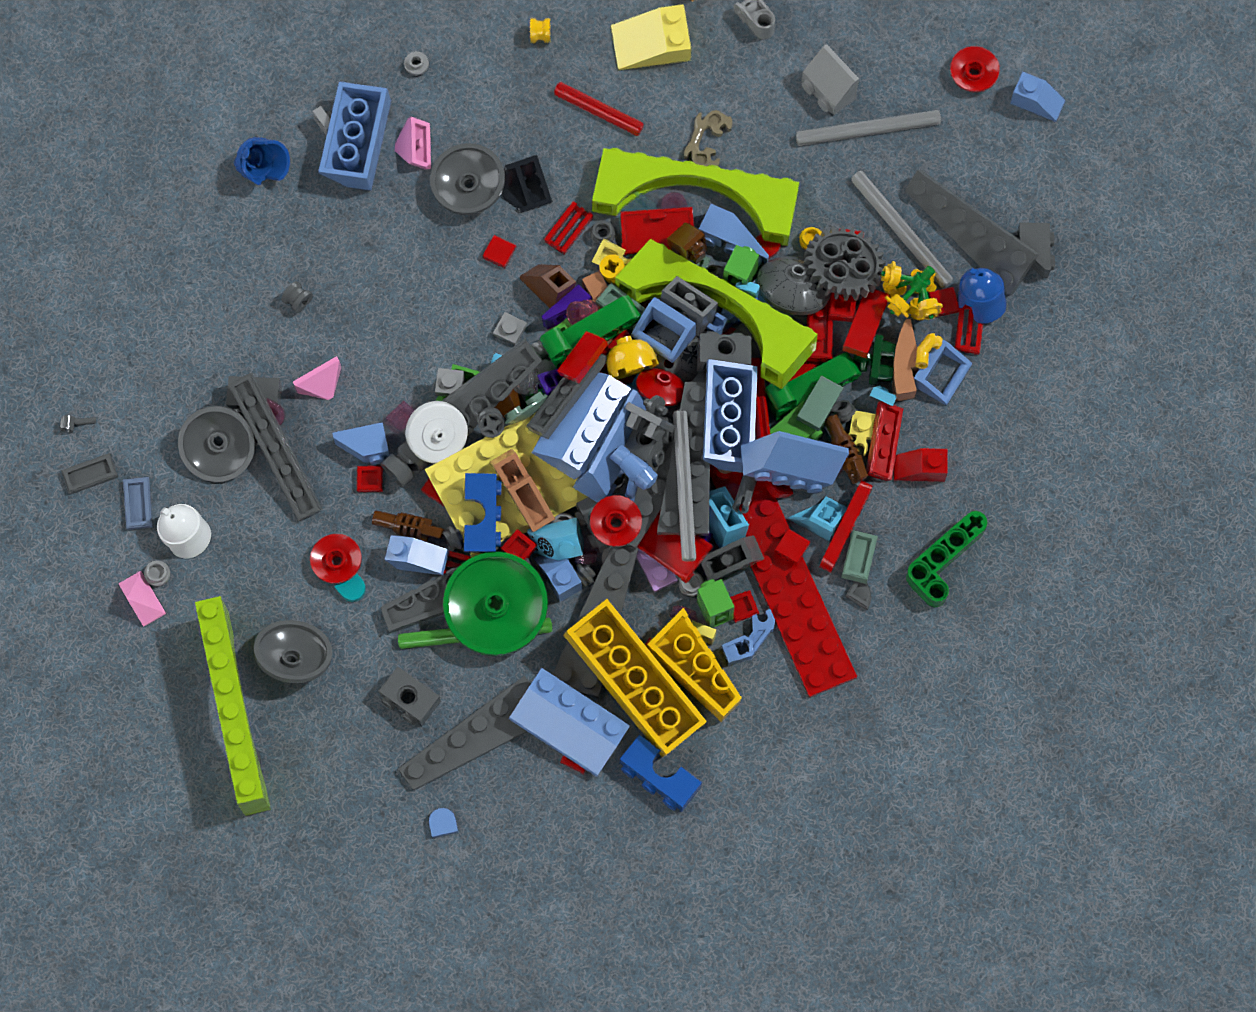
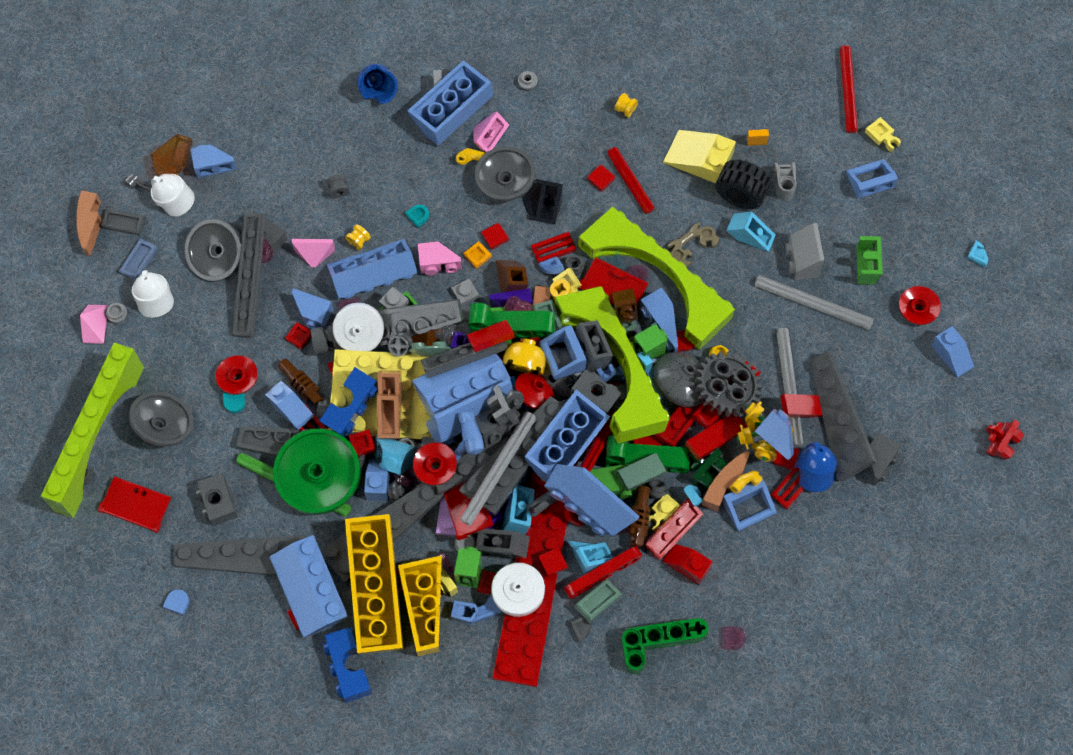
camera: 35 degrees right, 5 degrees down
(53, 494) = (88, 220): none -> nougat slope
(96, 372) = (172, 155): none -> clear orange slope
(124, 412) = (172, 194): none -> white helmet
(139, 350) = (211, 161): none -> medium blue slope
(333, 754) = (139, 507): none -> red door
(358, 338) = (358, 237): none -> yellow wheel
(396, 362) = (372, 269): none -> medium blue slope
(403, 277) = (418, 215): none -> teal tile
(411, 180) = (468, 155): none -> yellow arm
(453, 310) = (433, 255): none -> bright pink slope
(495, 282) = (477, 255): none -> light orange tile
(566, 124) = (601, 178): none -> red tile
(581, 248) = (551, 266): none -> medium blue tile
(721, 46) = (743, 184): none -> black tyre
(758, 90) = (751, 230): none -> medium azure slope
(778, 594) = (518, 589): none -> white wheel
(896, 51) = (869, 259): none -> bright green window
(927, 241) = (801, 405): none -> tile
(929, 281) = (778, 432): none -> medium blue slope
(1011, 511) = (733, 638): none -> clear pink tile
(1136, 156) = (1000, 437): none -> red hips

